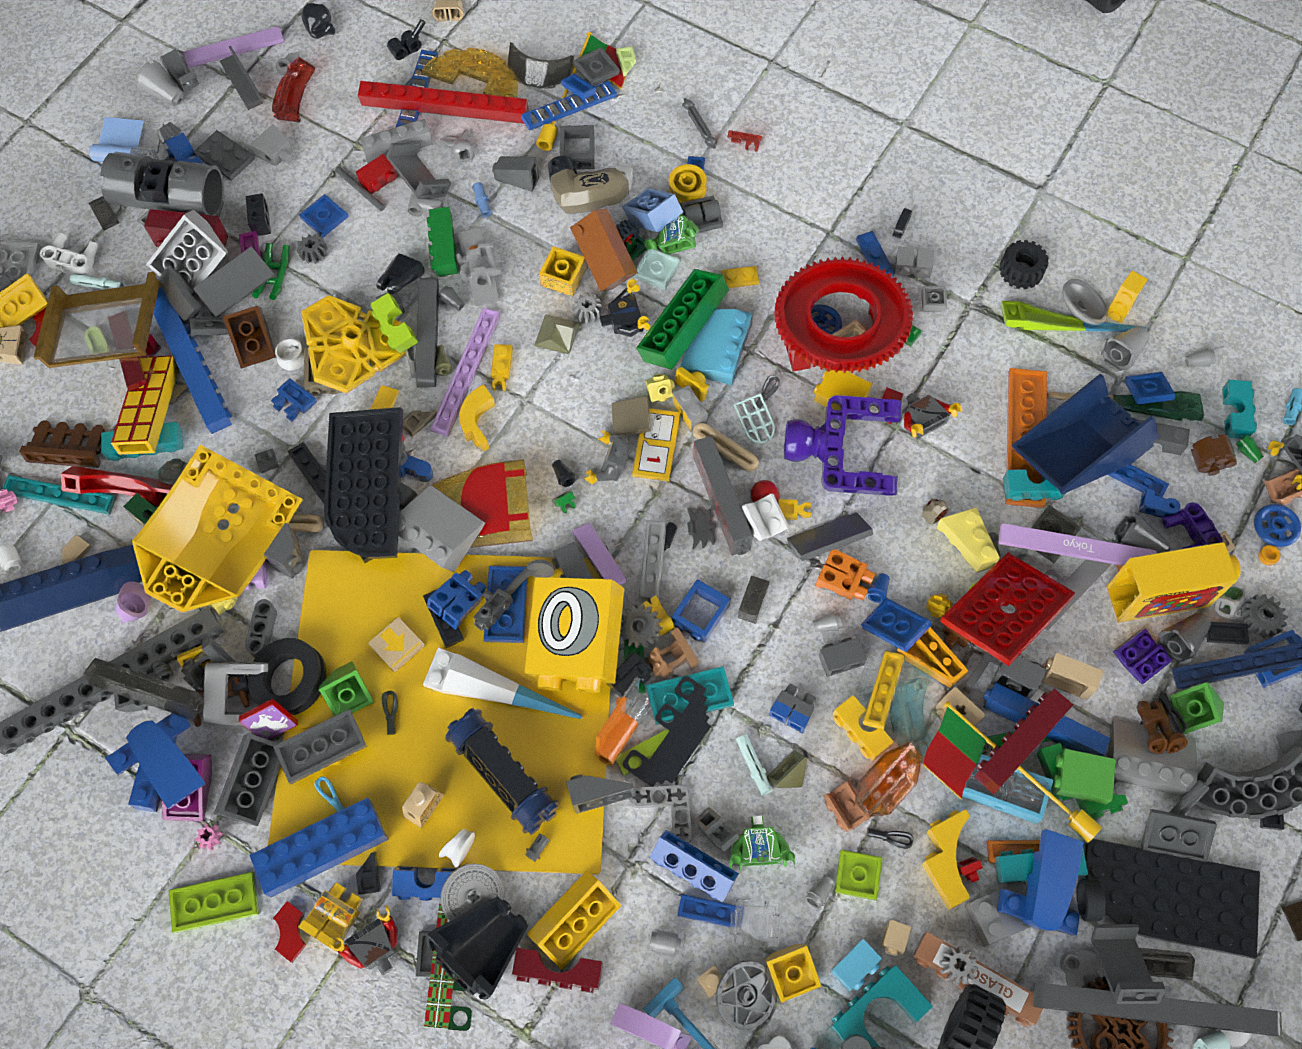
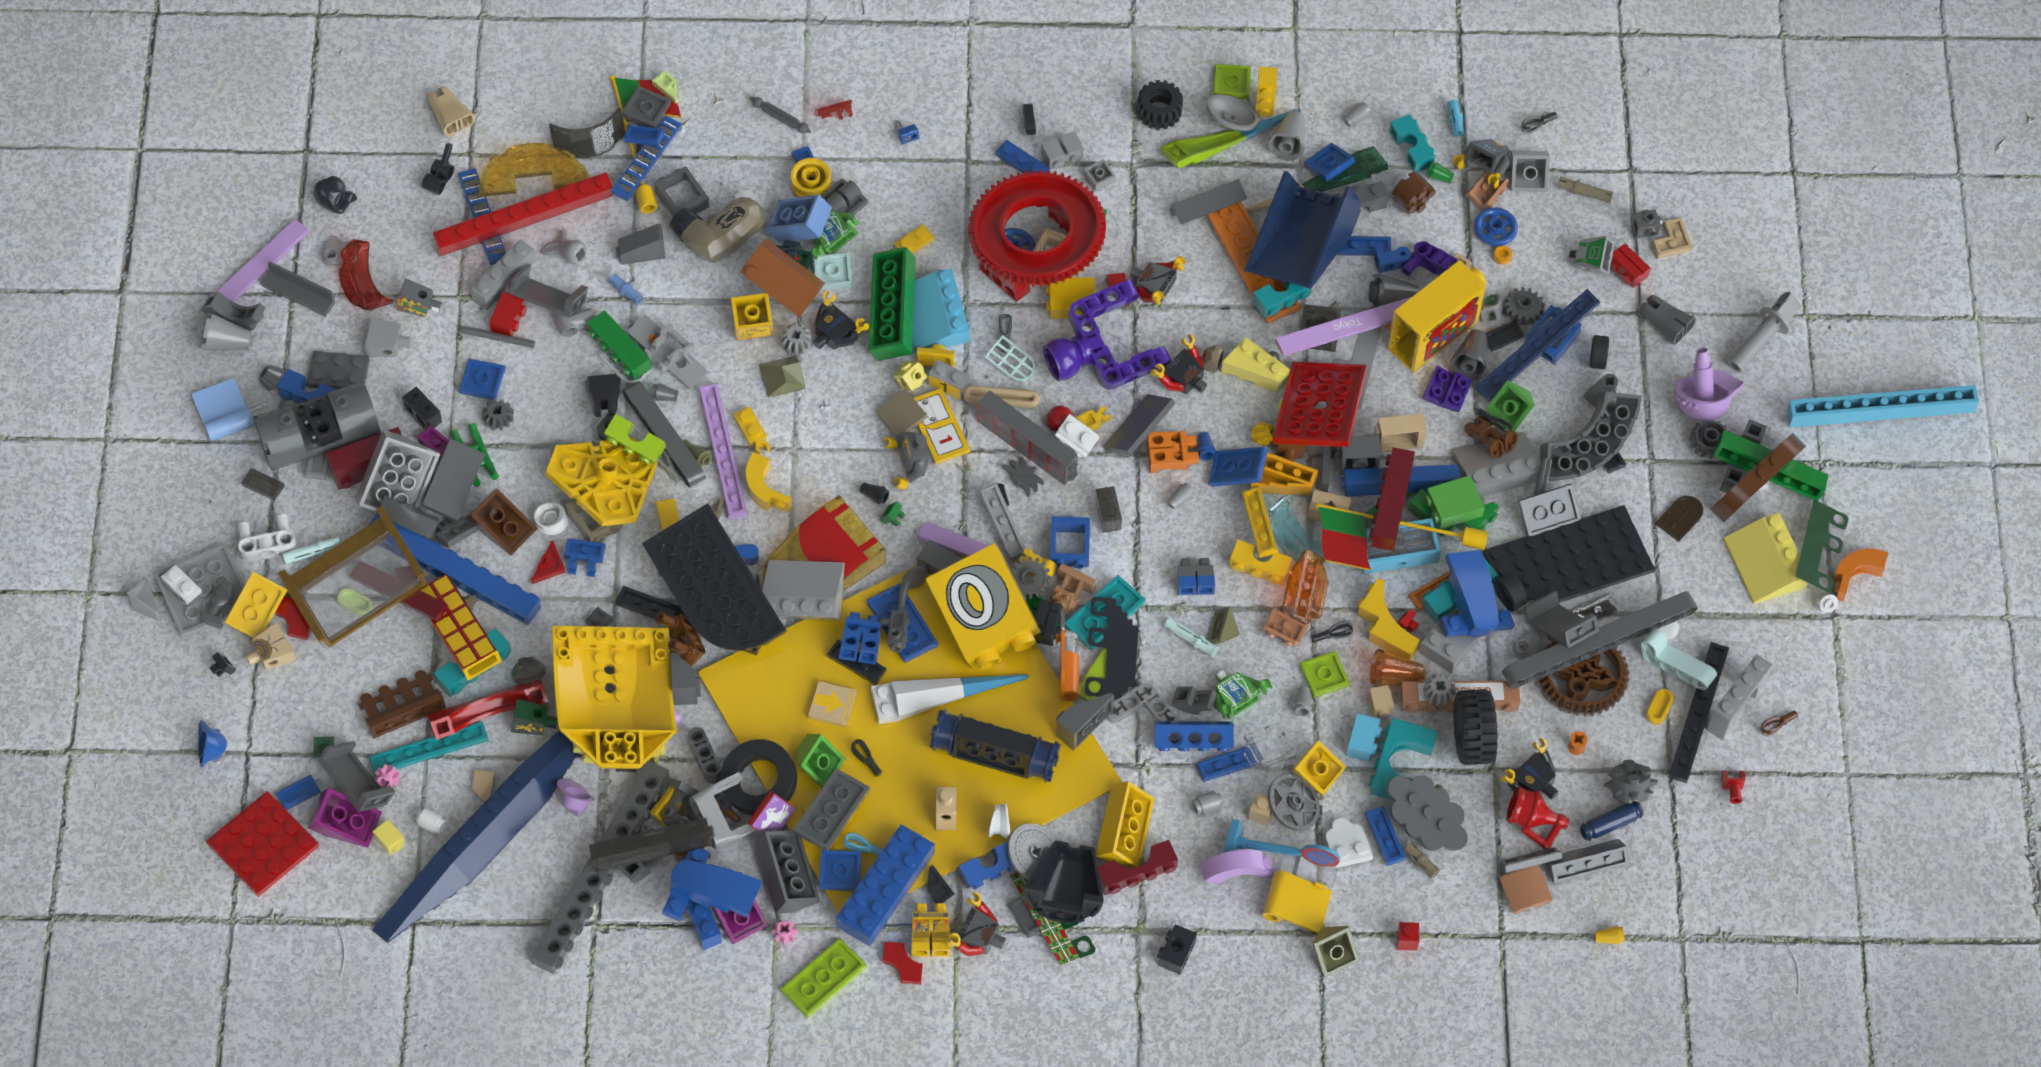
camera: 35 degrees left, 5 degrees down
(262, 392) = (549, 565): none -> red tile
(293, 807) = (840, 870): none -> blue plate
(310, 516) = (683, 637): none -> reddish brown piece
(316, 126) = (417, 299): none -> dark grey torso
(537, 847) = (1060, 790): dark grey pin -> none
(792, 186) = (908, 133): none -> blue piece
(842, 656) = (1209, 516): dark grey brick -> none
(901, 508) = (1183, 371): none -> torso
(927, 914) = (1394, 669): none -> clear orange cone
(1017, 369) = (1208, 202): none -> dark grey panel
(1102, 275) = (1232, 80): none -> lime tile

